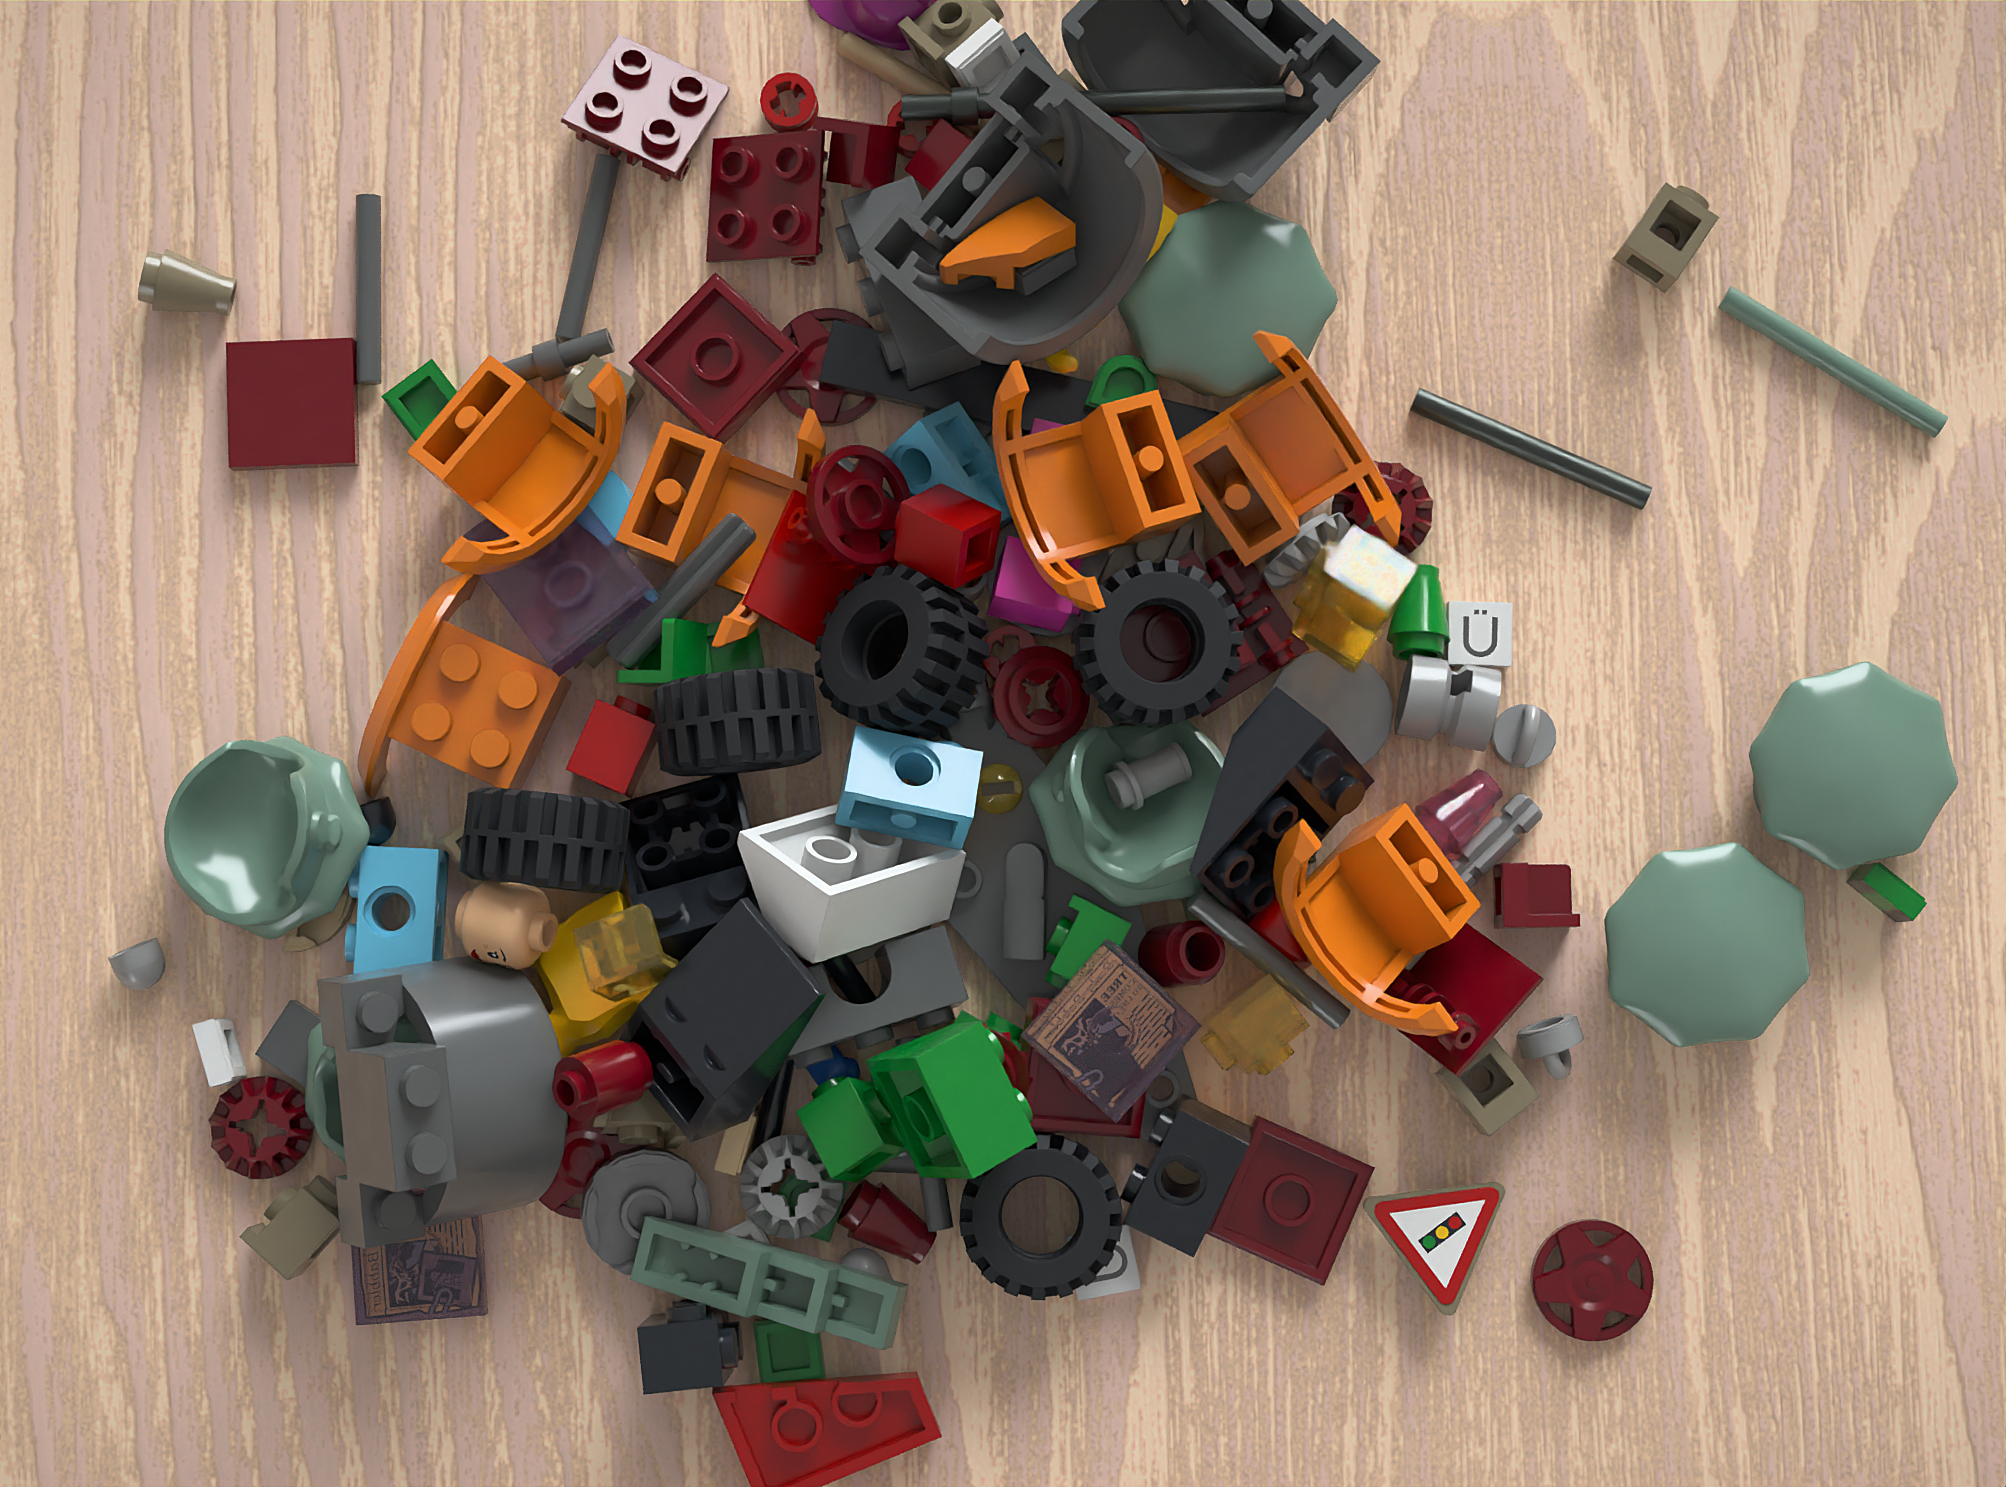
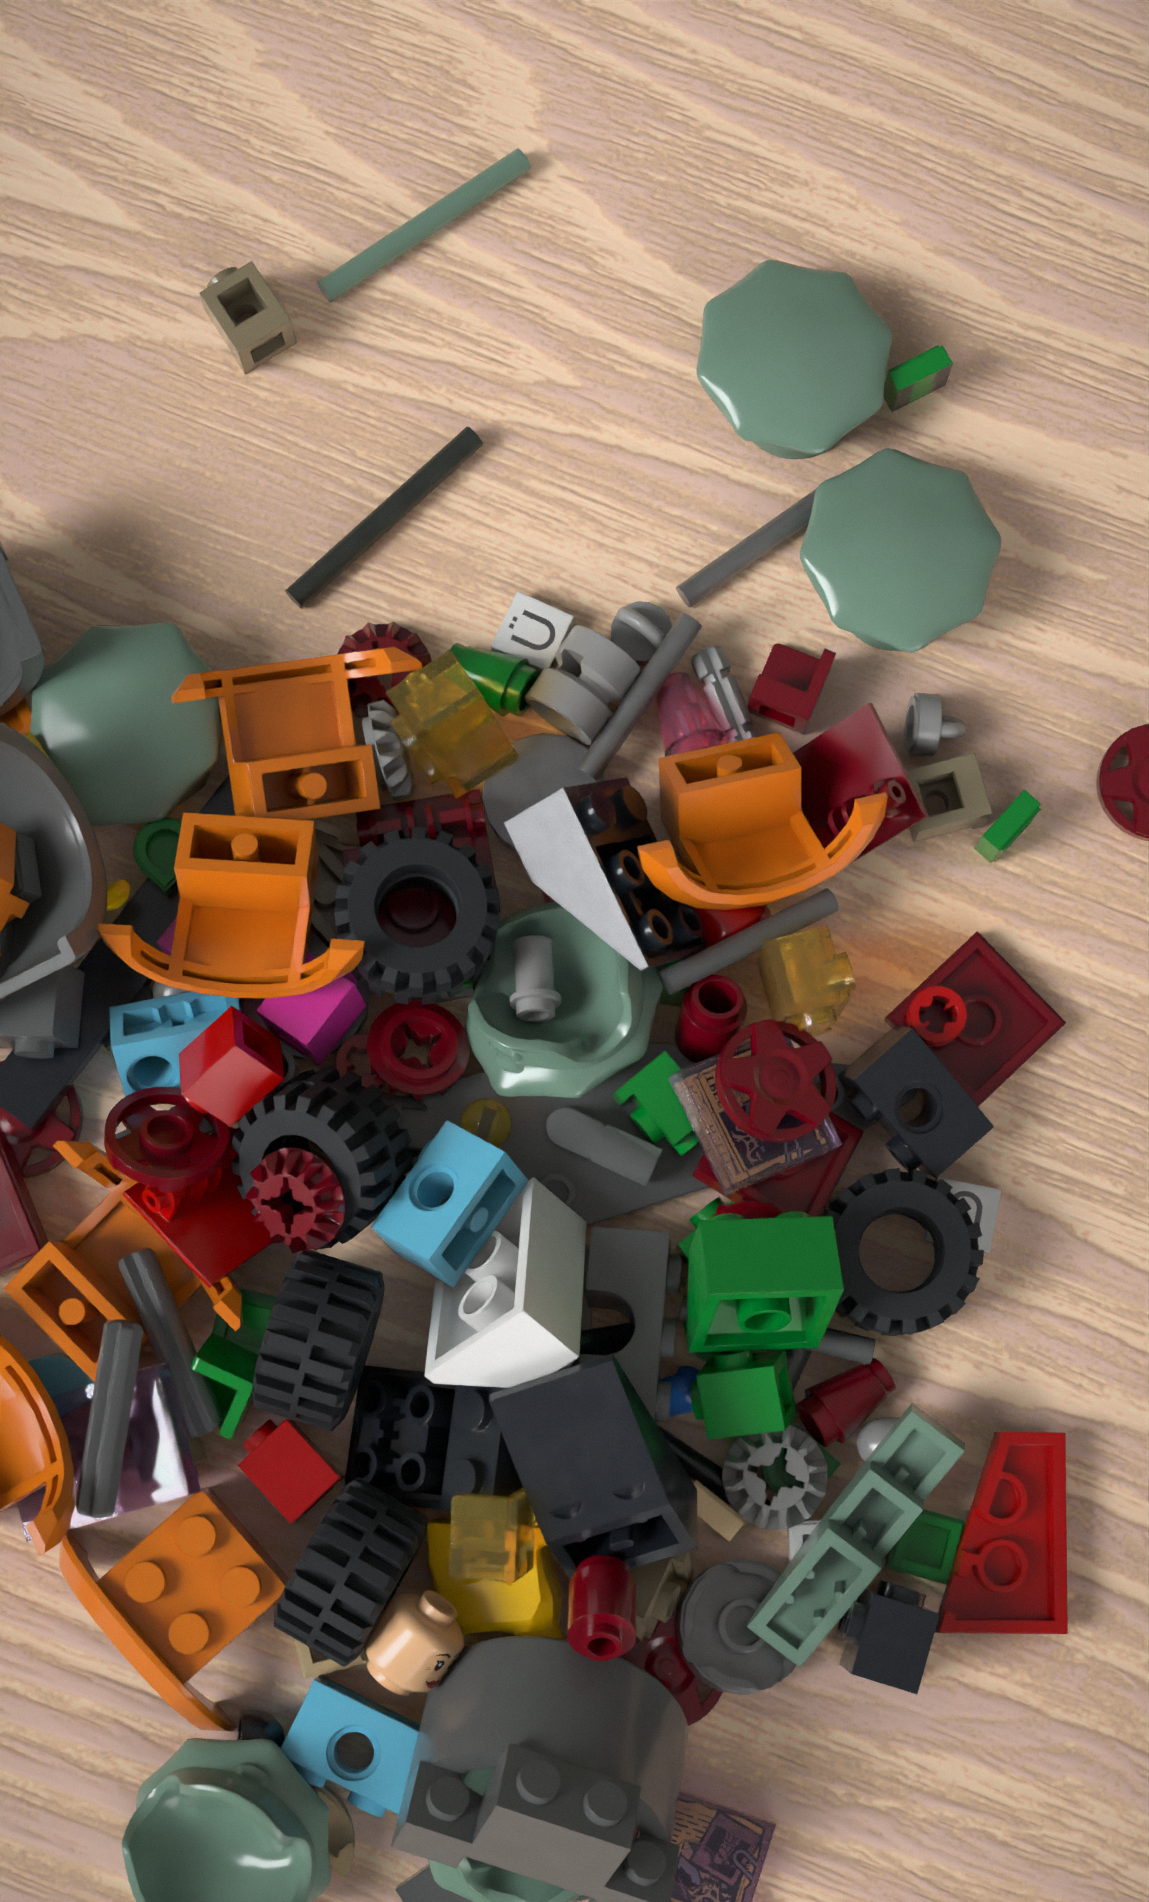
camera: 65 degrees left, 5 degrees down
(588, 566) = (109, 1418): none -> dark grey axle
(868, 655) = (310, 1183): none -> dark red gear
(1146, 1038) = (776, 1080): none -> dark red wheel
(1266, 1178) = (949, 1030): none -> red bush
(1438, 1234) = (1061, 898): piece -> none
(1458, 760) = (639, 697): none -> flat silver bar
(1485, 1156) = (1008, 827): none -> green tile
(1647, 802) = (747, 551): none -> flat silver bar

